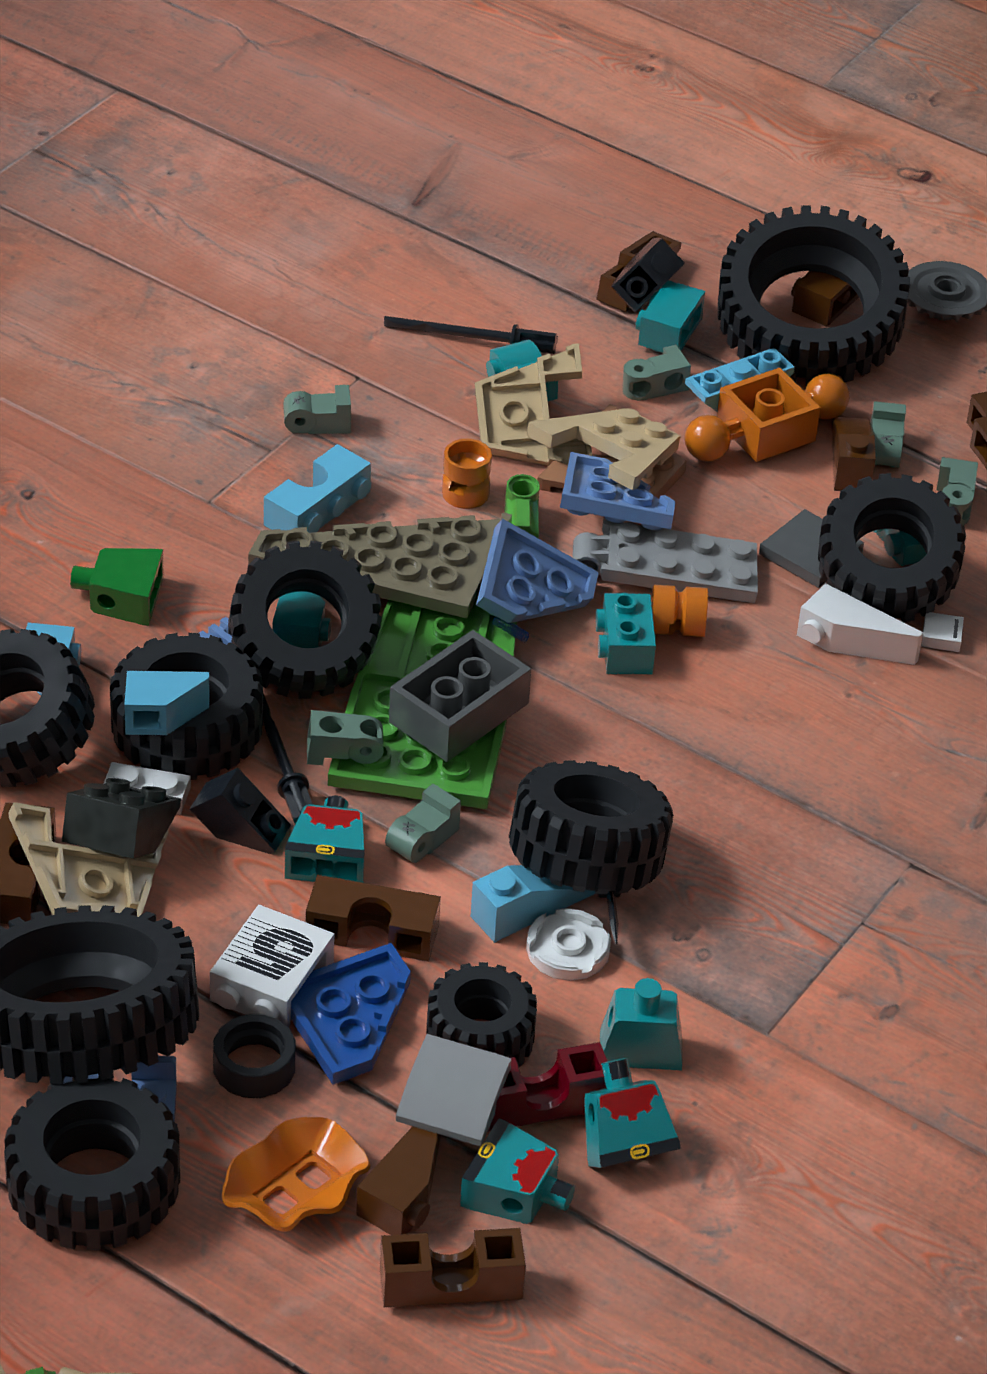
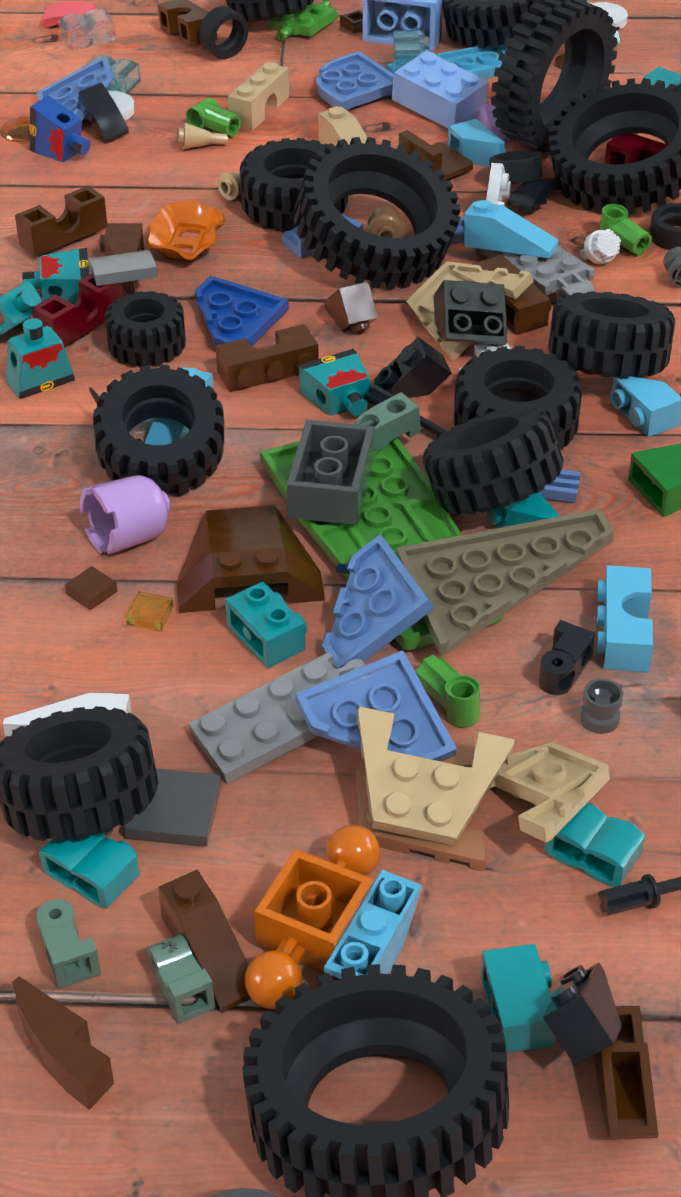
camera: 150 degrees right, 0 degrees up
(144, 1246) = (229, 185): none -> tan cone
(163, 700) = (511, 339): medium azure slope -> none
(212, 930) = (352, 307): none -> slope
(254, 1030) = (267, 260): black tyre -> none
(269, 964) = (301, 302): white panel -> none
(402, 492) = (567, 659): none -> black leg
(416, 446) = (601, 706): none -> dark grey wheel
(425, 825) = (287, 420): sand green leg -> none
(466, 473) = (528, 690): orange wheel -> none
(595, 705) = (242, 550): none -> reddish brown wedge
(656, 375) = (468, 923): sand green leg -> none
(679, 610) = (233, 659): orange wheel -> none
(685, 775) = (124, 513): none -> lavender cylinder
(717, 709) = (149, 611): none -> clear yellow tile
(756, 757) = (91, 587): none -> reddish brown tile

